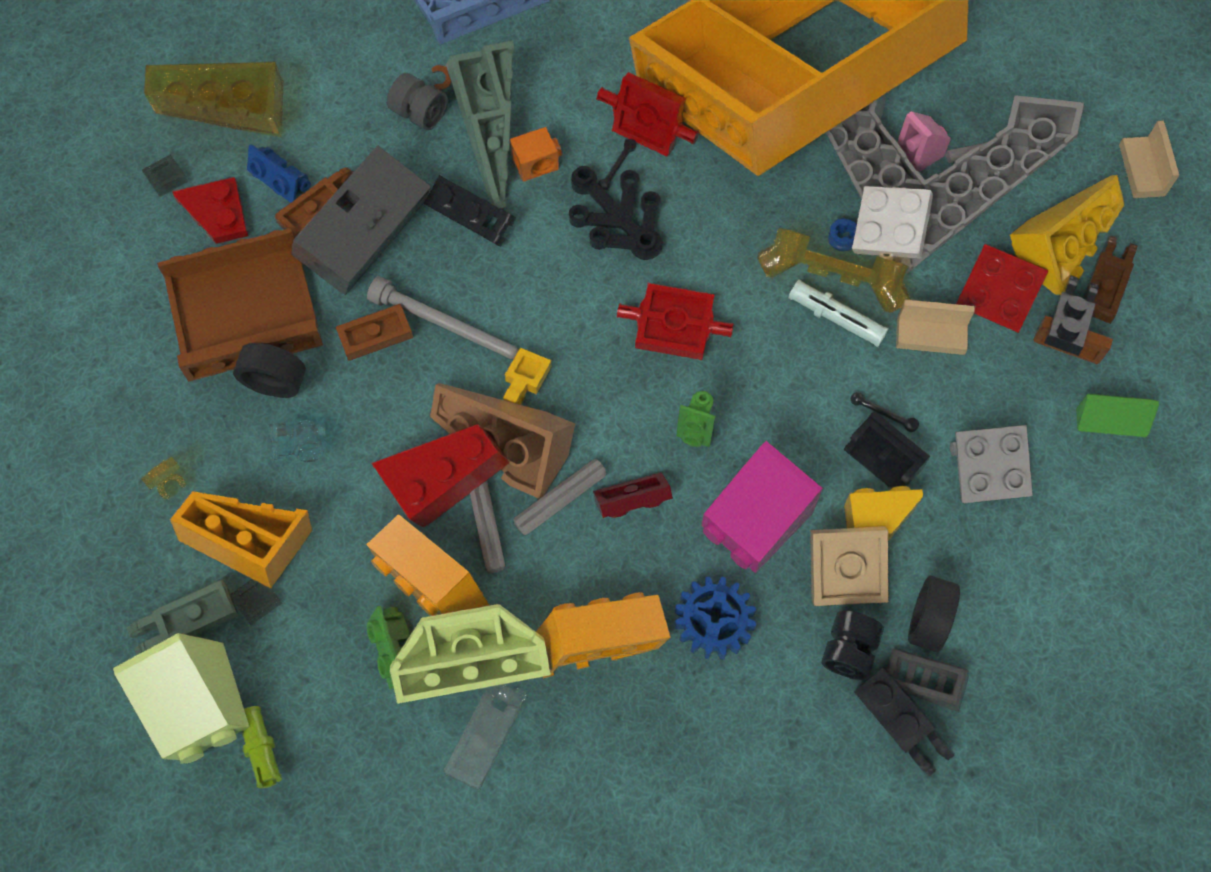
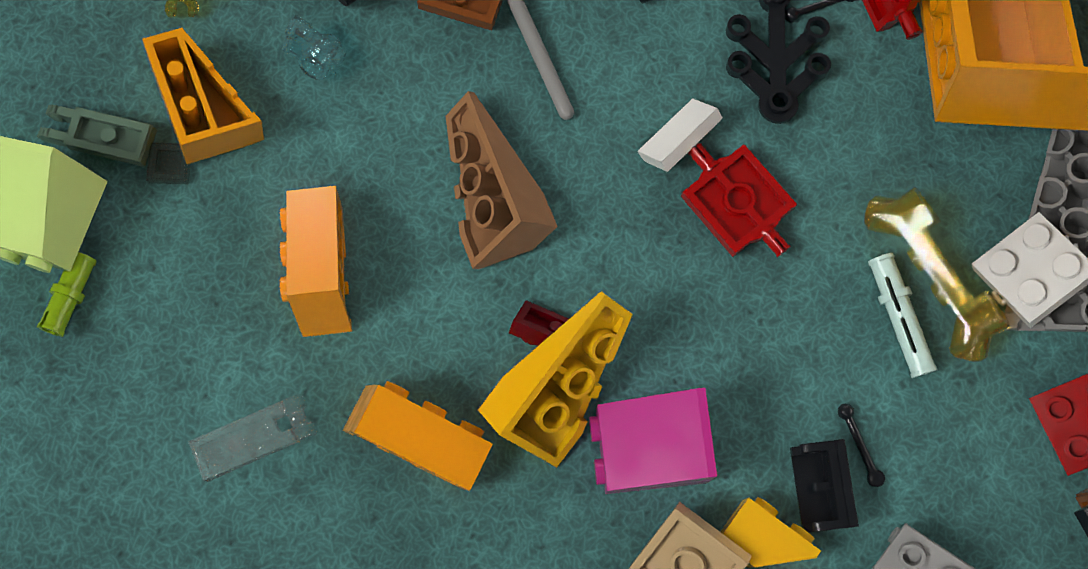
camera: 40 degrees right, 10 degrees up
(386, 630) = (233, 312): bright green hinge -> none
(440, 472) = (401, 177): red wedge -> none
(467, 653) = (283, 359): yellowish green wedge -> none
(487, 529) = (410, 250): light grey axle -> none
(525, 374) = (558, 143): yellow plate -> none
(559, 497) = (493, 281): light grey axle -> none
(601, 308) = (680, 134): none -> white tile
(663, 531) = (549, 390): none -> yellow wedge
(696, 422) = (669, 312): bright green hinge -> none
(729, 619) = (513, 517): blue gear -> none
(842, 226) = (985, 232): blue bush -> none
(933, 327) = (983, 404): tan panel -> none

